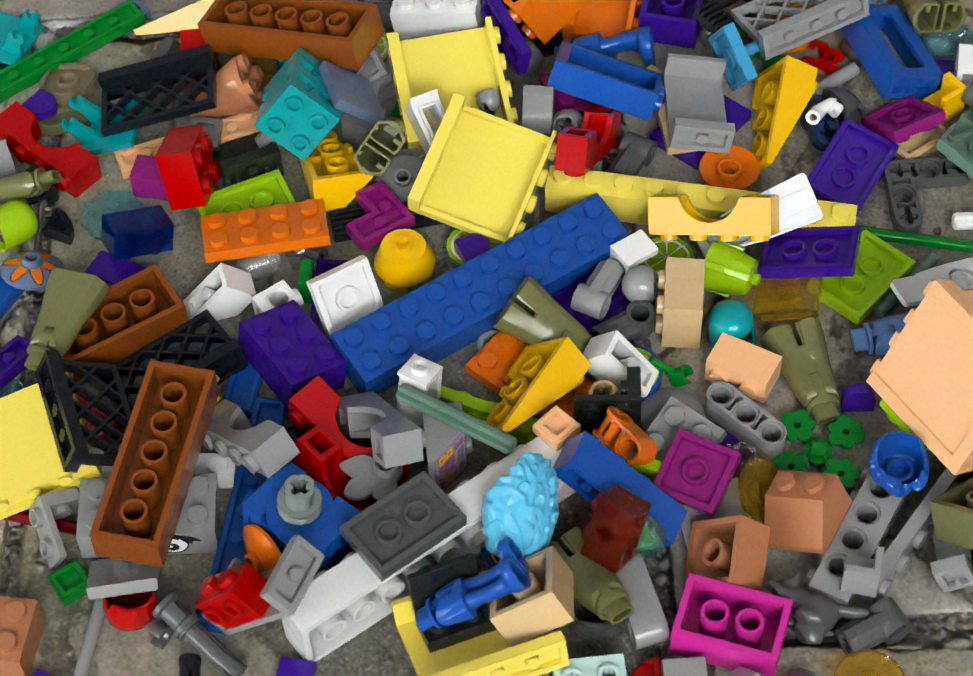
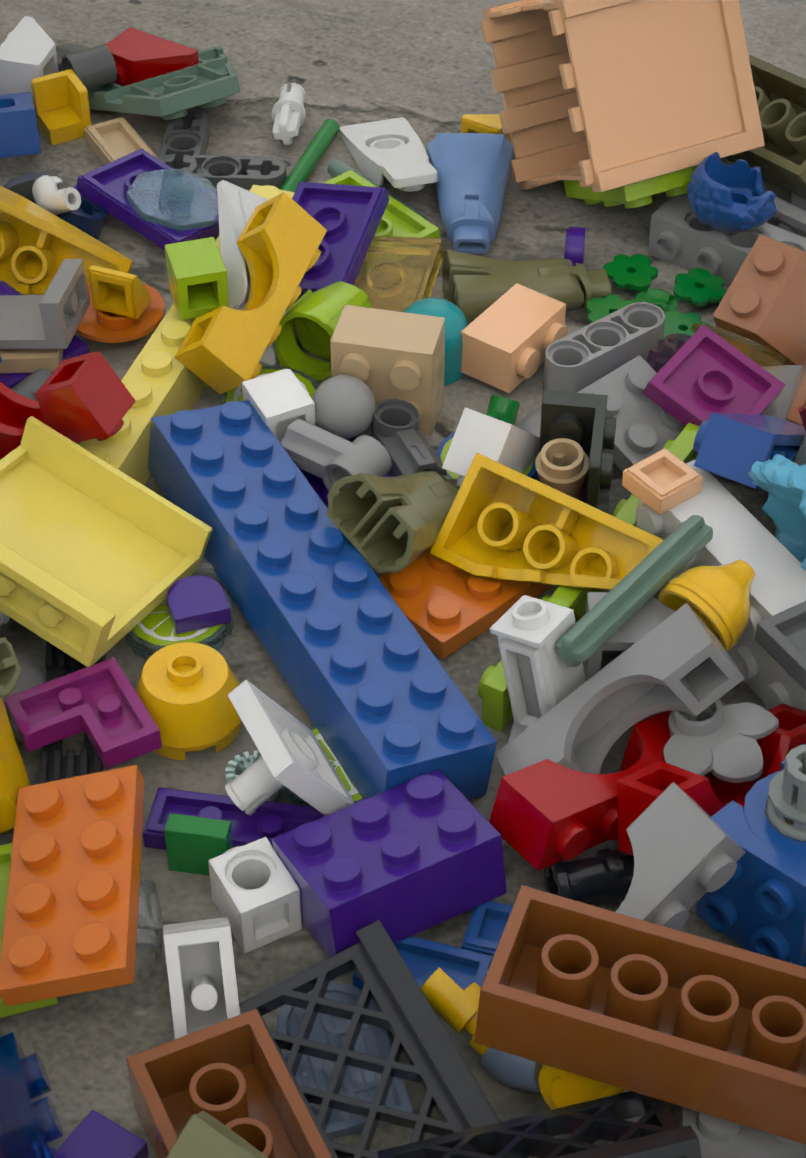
camera: 85 degrees left, 10 degrees down
(453, 457) = (717, 596): none -> yellow helmet
(621, 433) = (668, 427): orange piece -> none
(719, 184) = (196, 277): none -> lime brick
(733, 162) = (118, 292): none -> yellow slope
(847, 173) = (174, 199): none -> clear light blue piece
(904, 119) = (90, 138): magenta plate -> none

